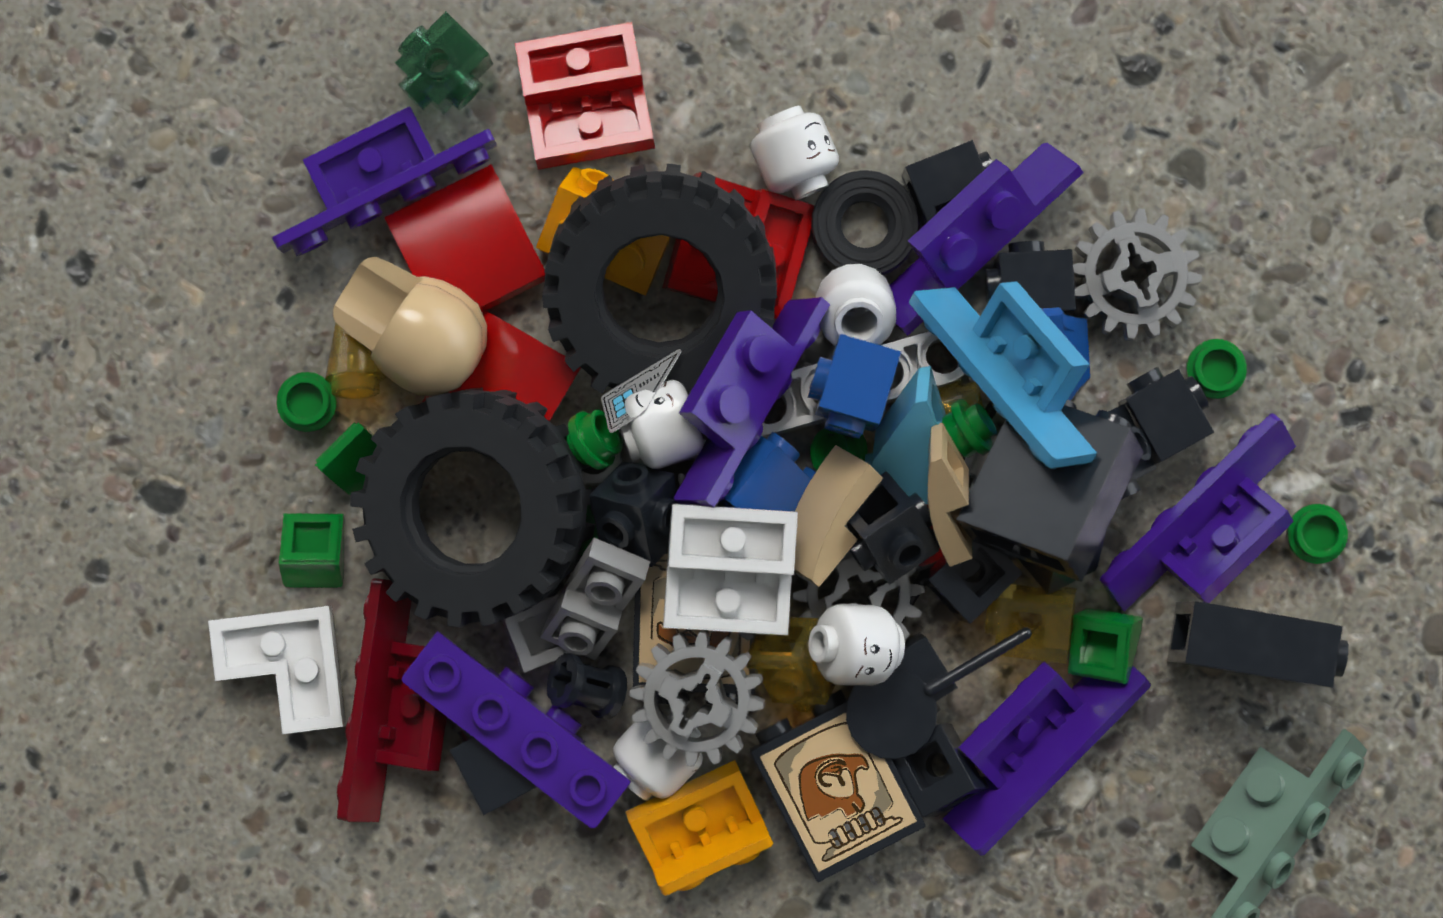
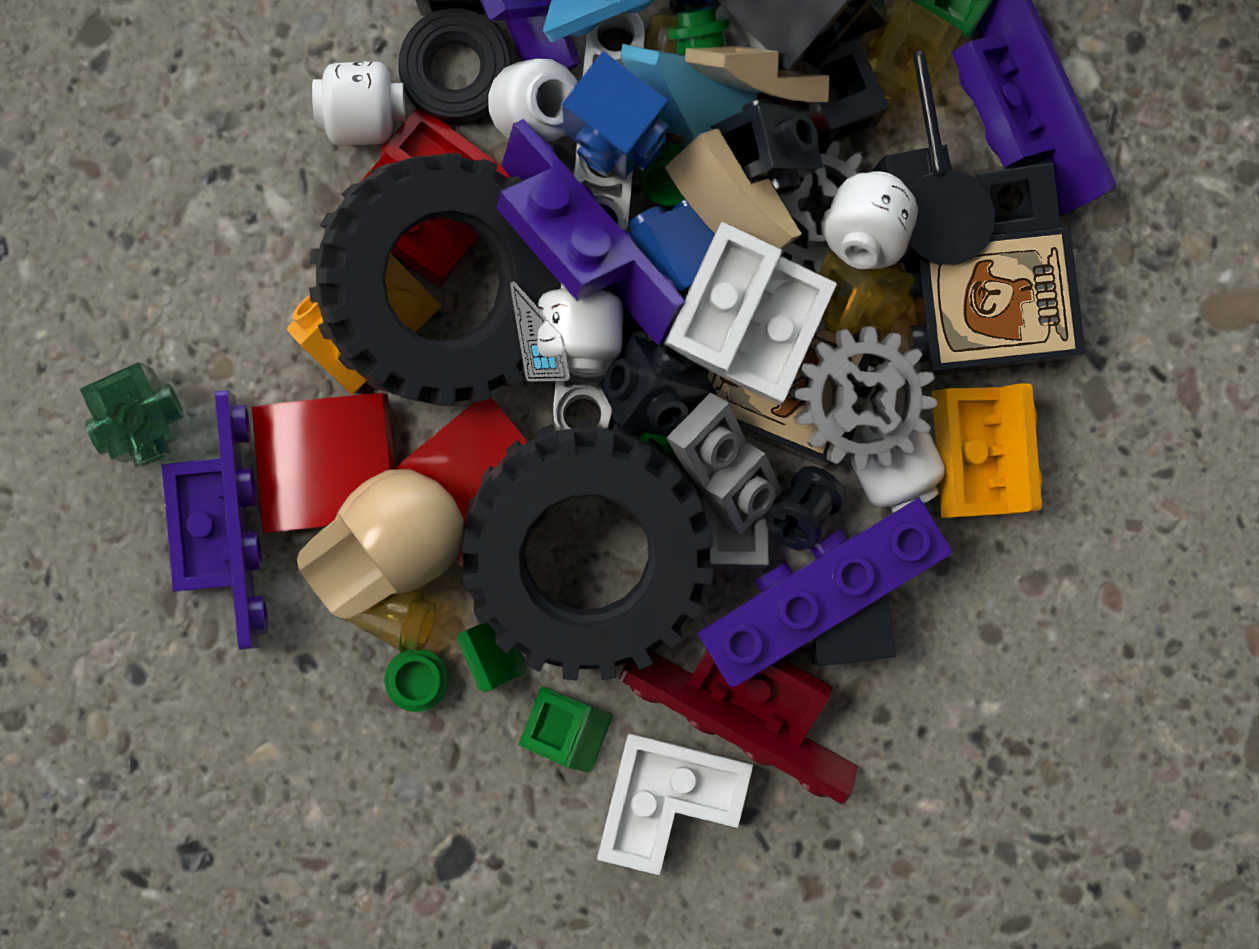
camera: 75 degrees left, 0 degrees up
(584, 95) = (220, 290): slope -> none
(592, 441) = (567, 403): green plate -> none

